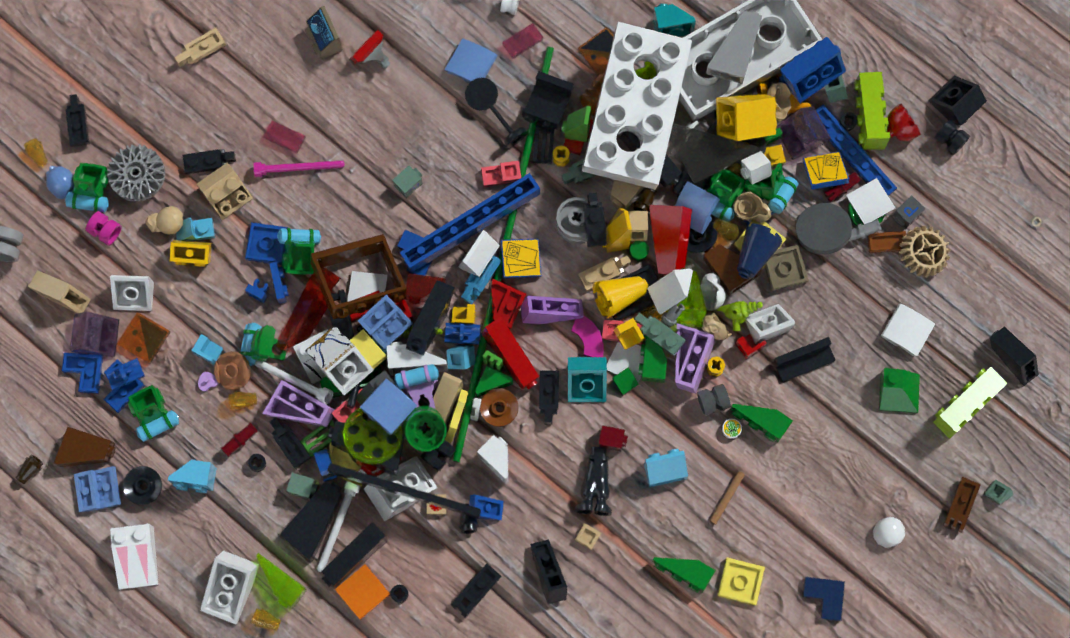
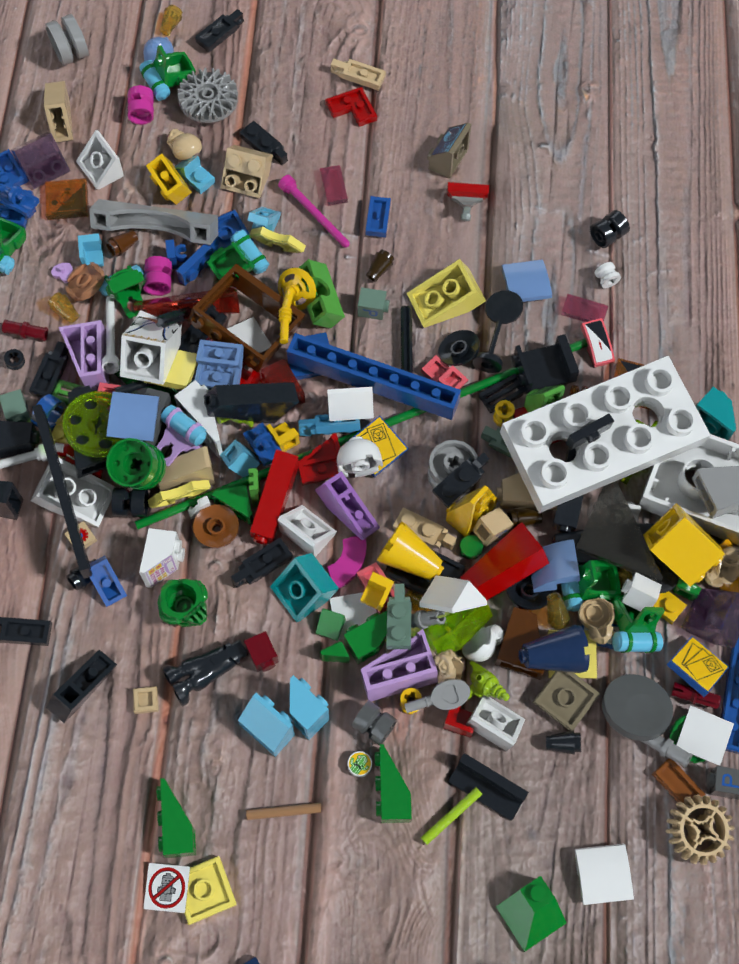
camera: 50 degrees right, 10 degrees down
(193, 310) = (190, 225): none -> light grey arch
(217, 324) = (121, 243): none -> reddish brown cone
(221, 70) = (355, 102): none -> red tile
(268, 315) = (157, 275): none -> dark pink wheel
(278, 207) = (264, 217): none -> medium azure slope
(308, 207) = (269, 238): none -> light yellow tile
(327, 325) = (173, 317): none -> black axle
(338, 125) = (378, 216): none -> blue plate
(360, 231) = (293, 291): none -> yellow dish
(362, 206) = (326, 307): none -> bright green arch
(379, 152) = (381, 263): none -> dark brown cone
(440, 126) = (446, 295): none -> light yellow slope
(455, 180) = (406, 339): none -> black axle
(481, 148) = (459, 348): none -> black dish
(524, 276) = (359, 457): none -> white cylinder
(541, 465) = (183, 602): none -> green helmet
(547, 348) = (306, 530): none -> white slope
(555, 51) = (598, 342): none -> slope
(636, 115) = (590, 432): none -> black plate
(648, 390) = (335, 653): none -> green slope
(673, 435) = (306, 709): none -> medium azure slope
(723, 603) = (166, 887): none -> sticker
(732, 342) = (445, 696): none -> light grey piece
(806, 395) = (455, 812): none -> lime bar
(812, 290) = (564, 742): none -> black cone

